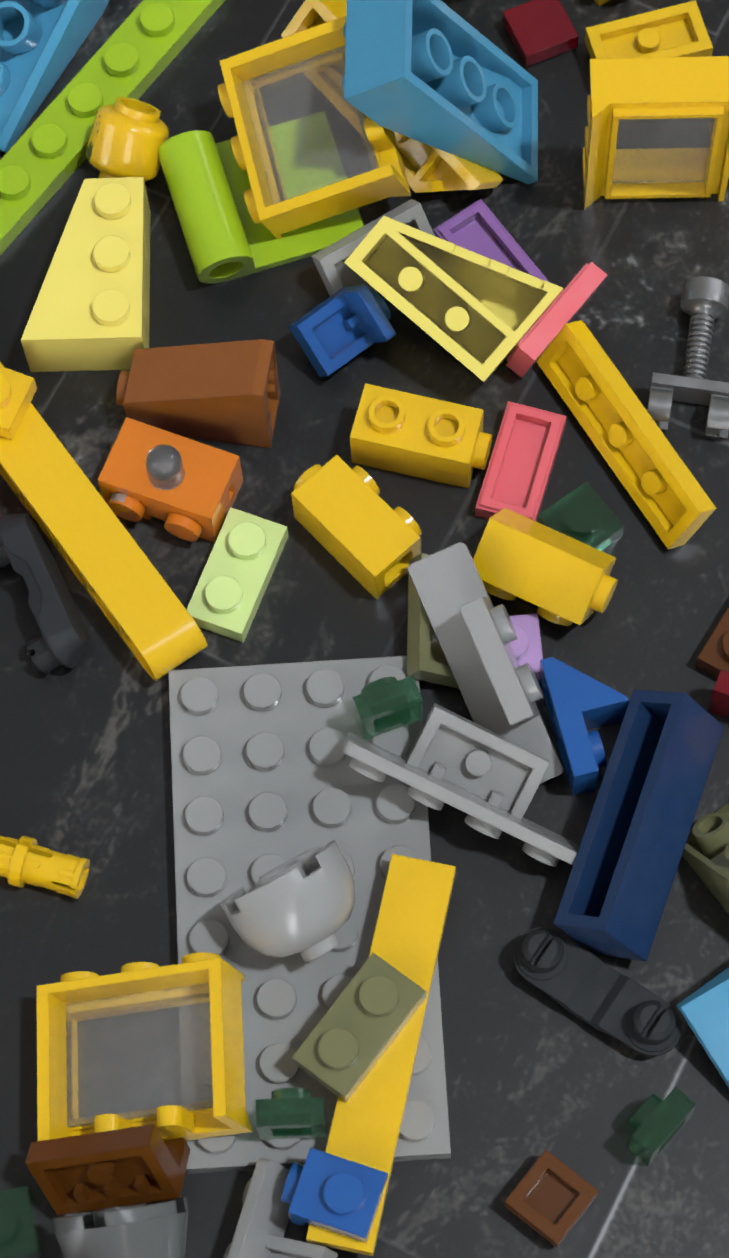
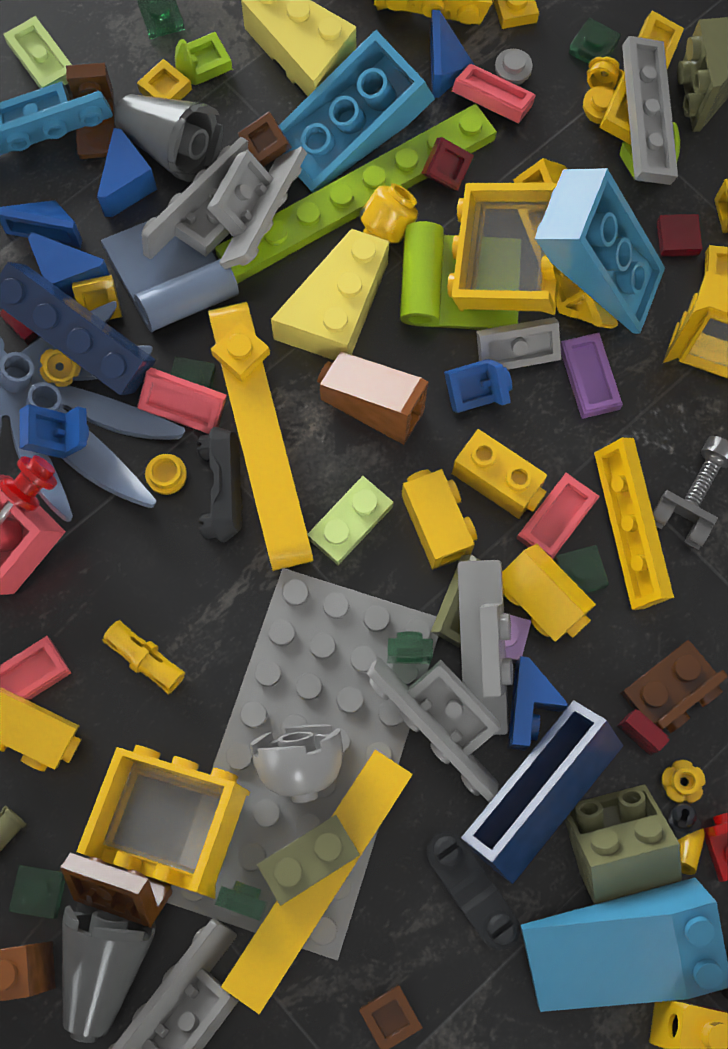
camera: 15 degrees right, 5 degrees up
(171, 480) = (331, 443): orange piece -> none
(181, 46) = (447, 164): none -> dark red tile
(334, 1194) = (249, 966): blue bracket -> none
(453, 294) = (556, 391): light yellow wedge -> none
(554, 318) = (617, 430): coral tile -> none
(658, 1123) = (479, 997): clear green plate -> none

